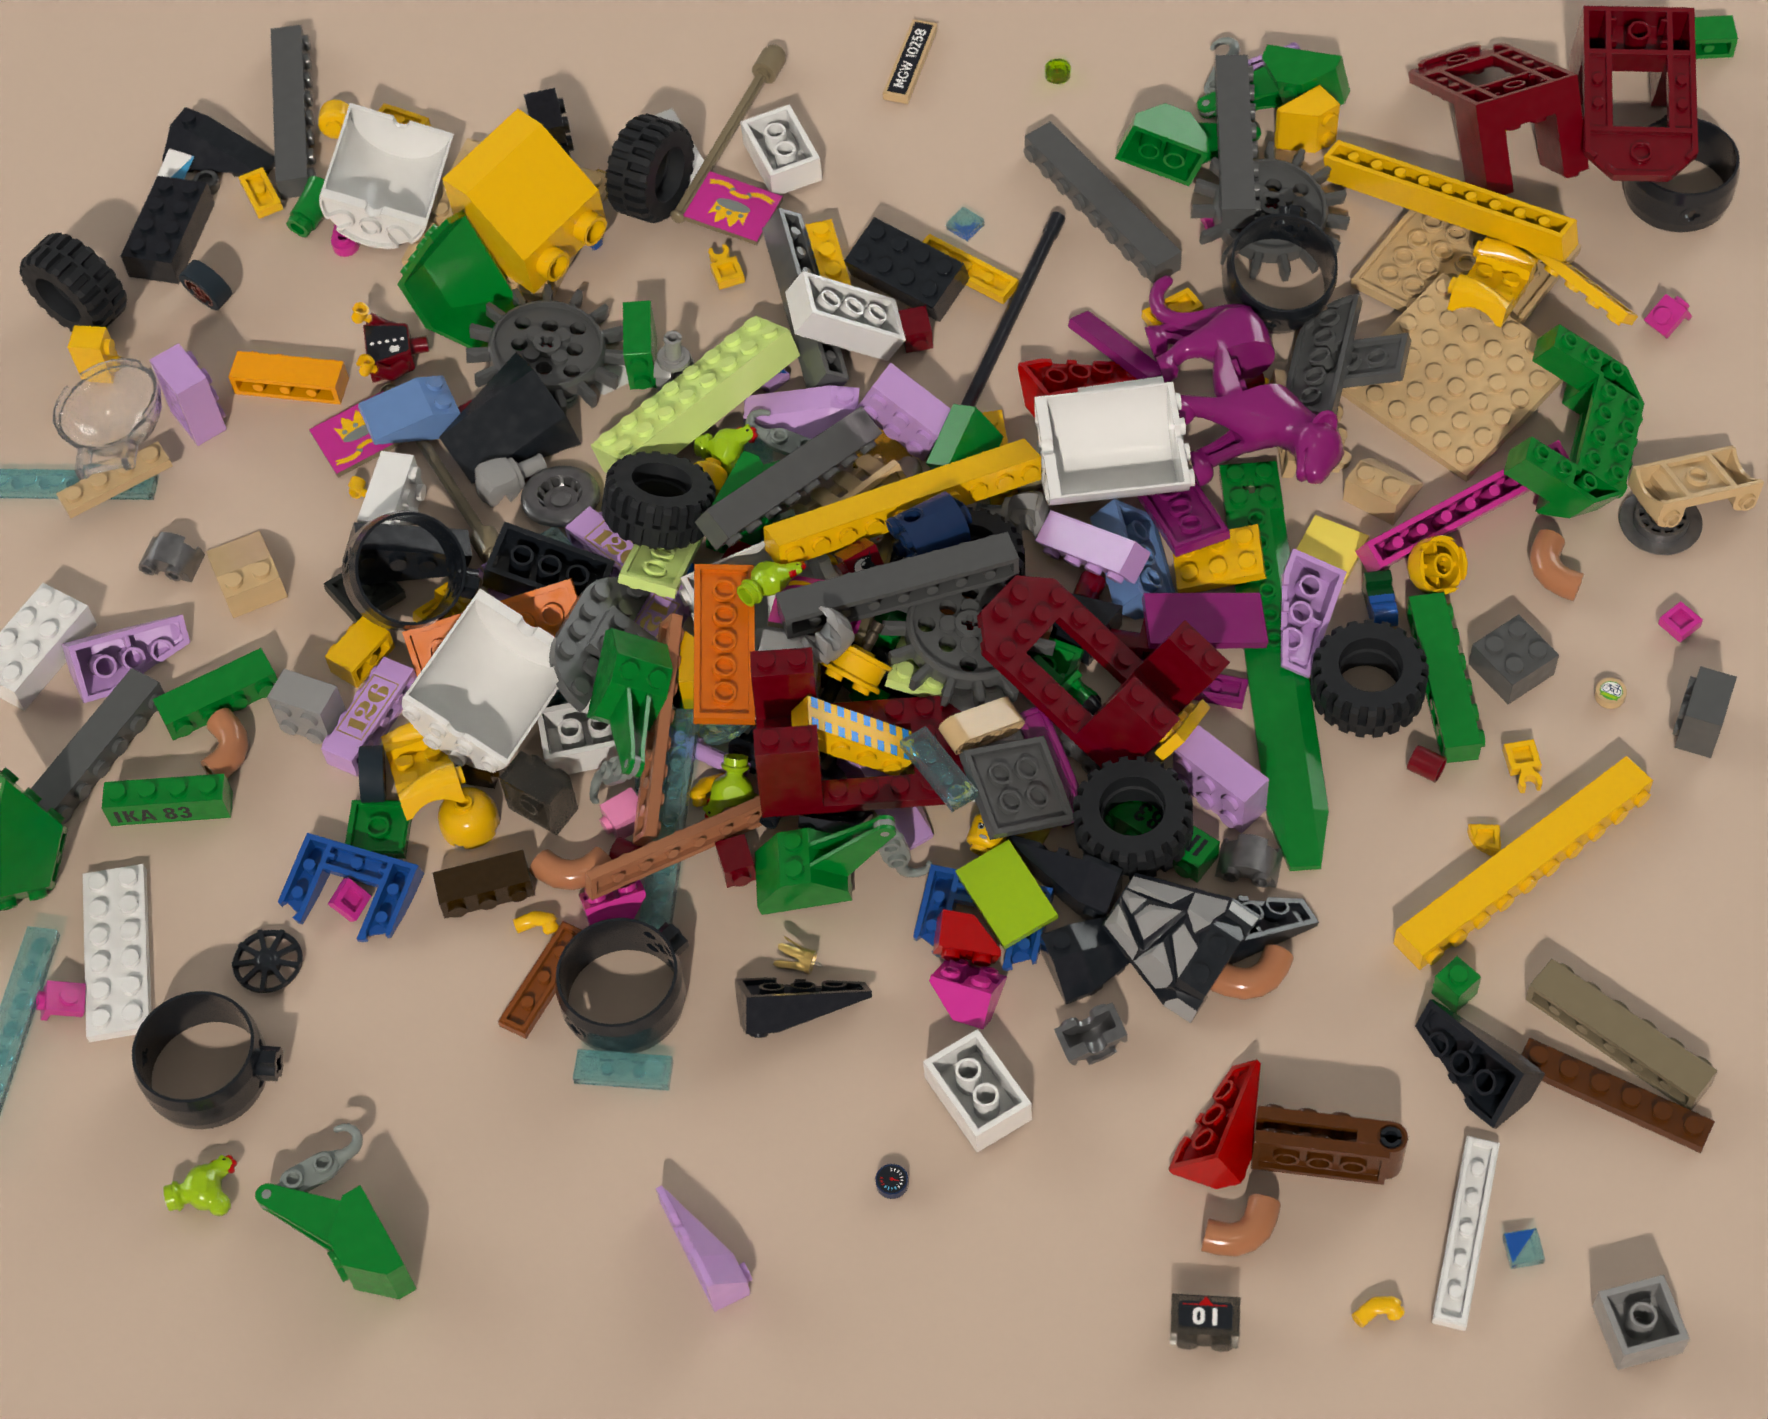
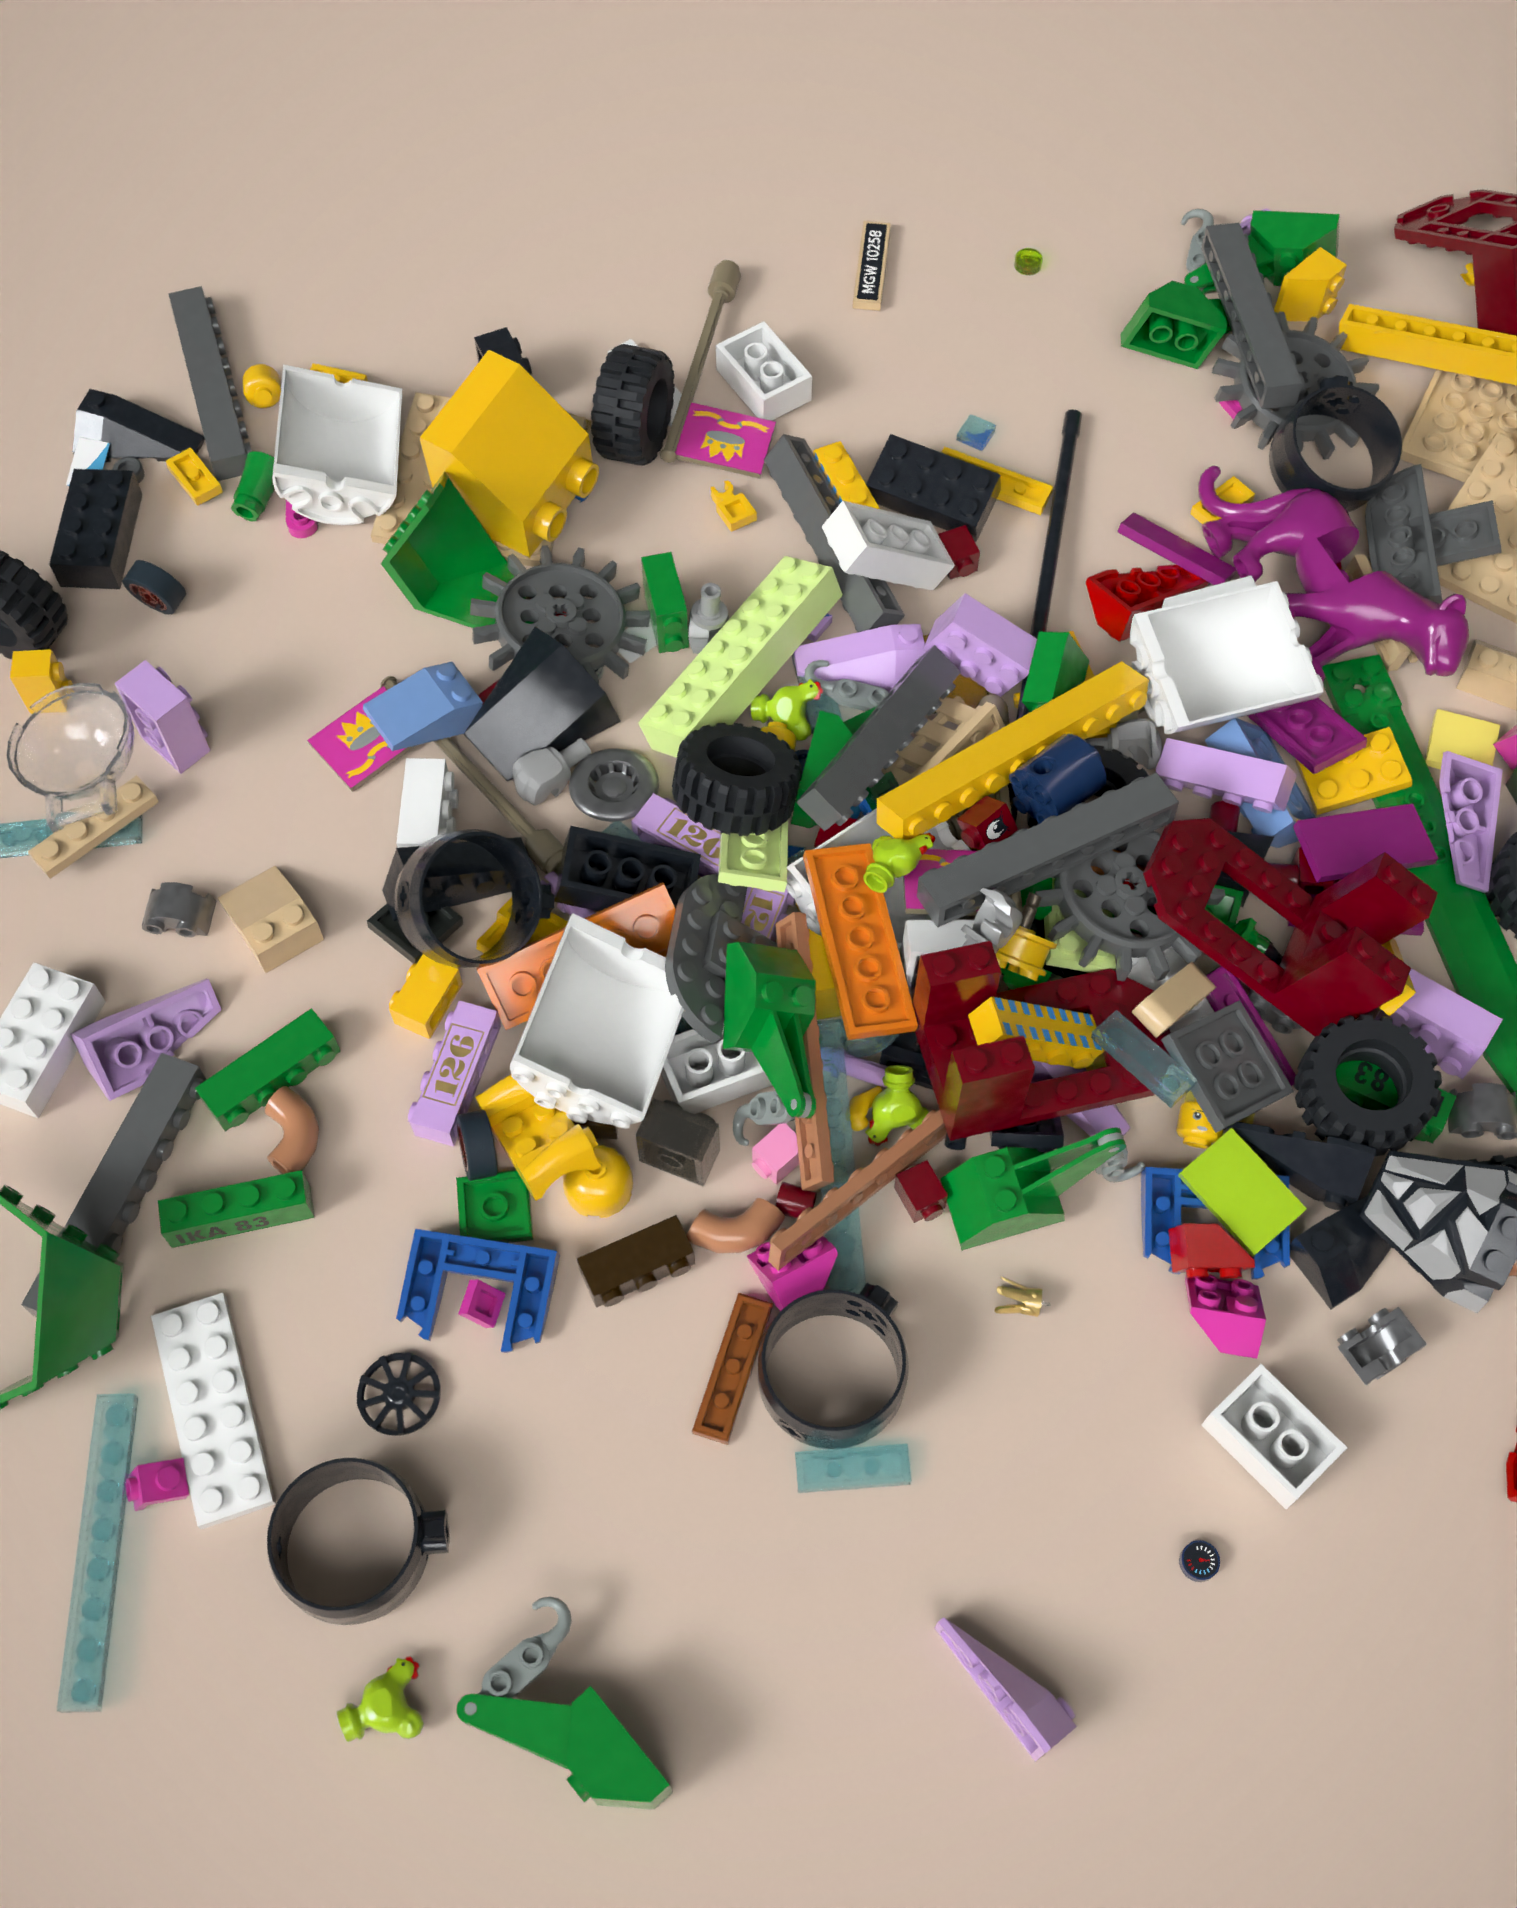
camera: 15 degrees left, 5 degrees up
(289, 377) = (271, 682): light orange brick -> none
(305, 705) = (381, 1073): light grey brick -> none
(356, 487) = (378, 803): yellow hand -> none
(387, 346) = (378, 633): torso -> none
(536, 918) = (708, 1294): yellow arm -> none
(774, 1007) = (1021, 1362): black wedge -> none
(1102, 203) = (1117, 395): dark grey brick -> none

